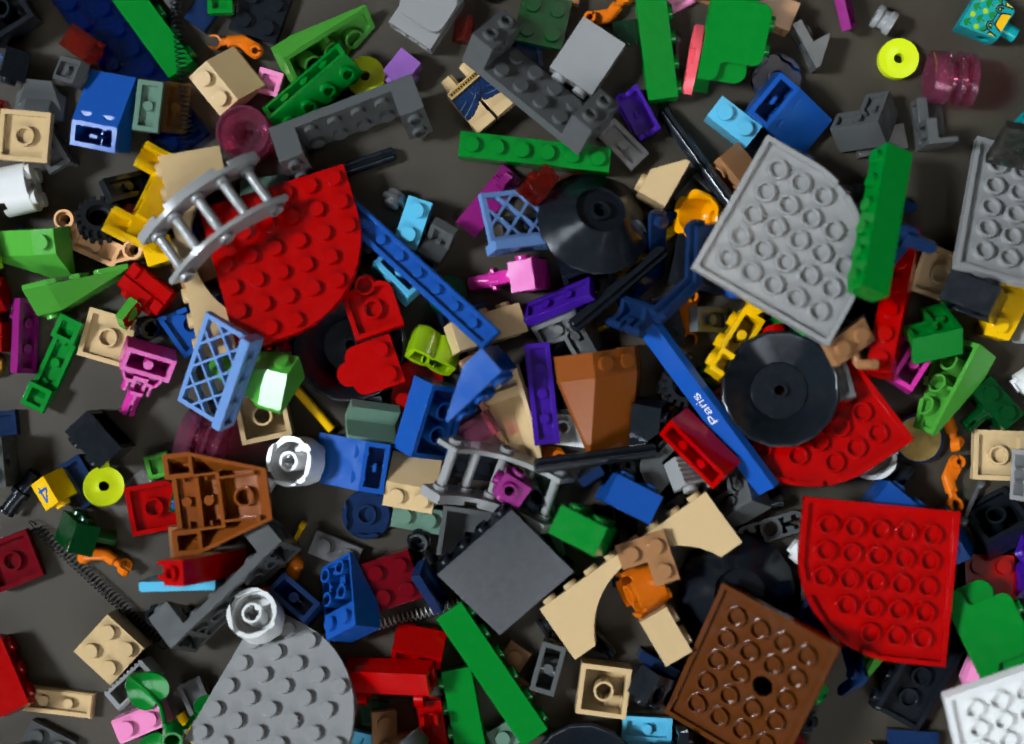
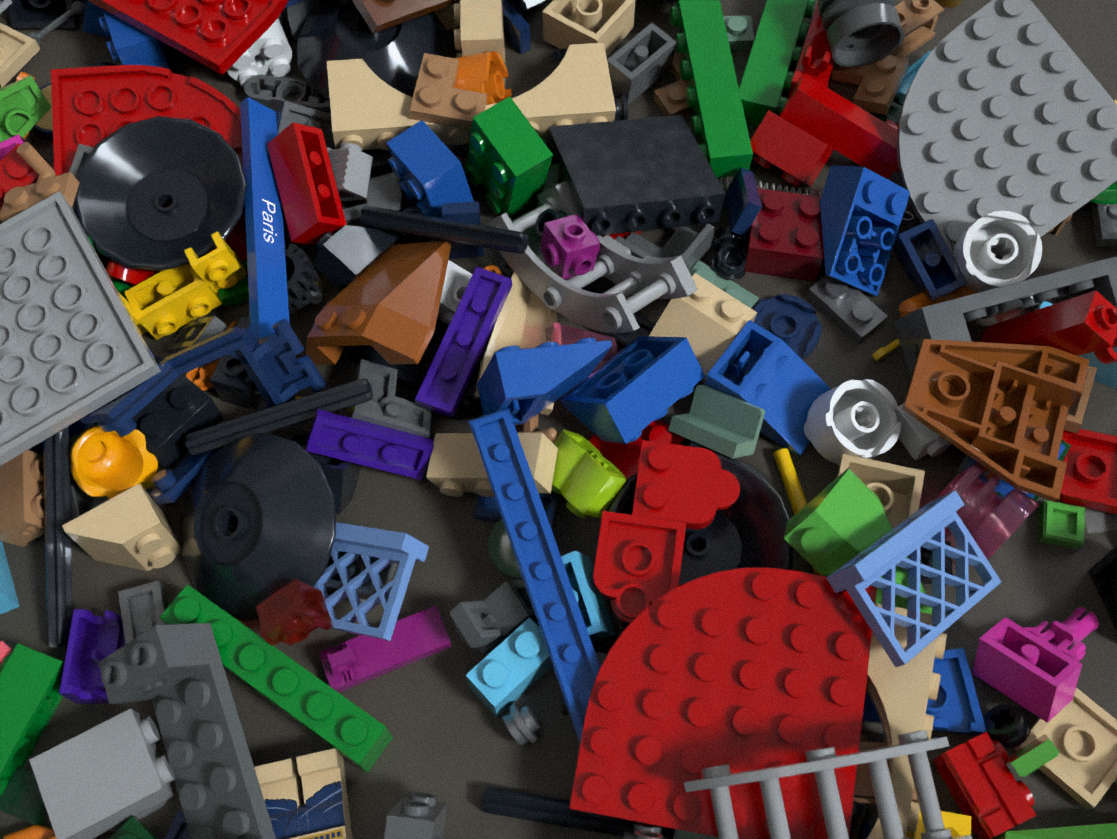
camera: 145 degrees left, 25 degrees down
(524, 275) = (396, 507): dark pink brick -> none
(949, 476) = (63, 55): orange arm -> none

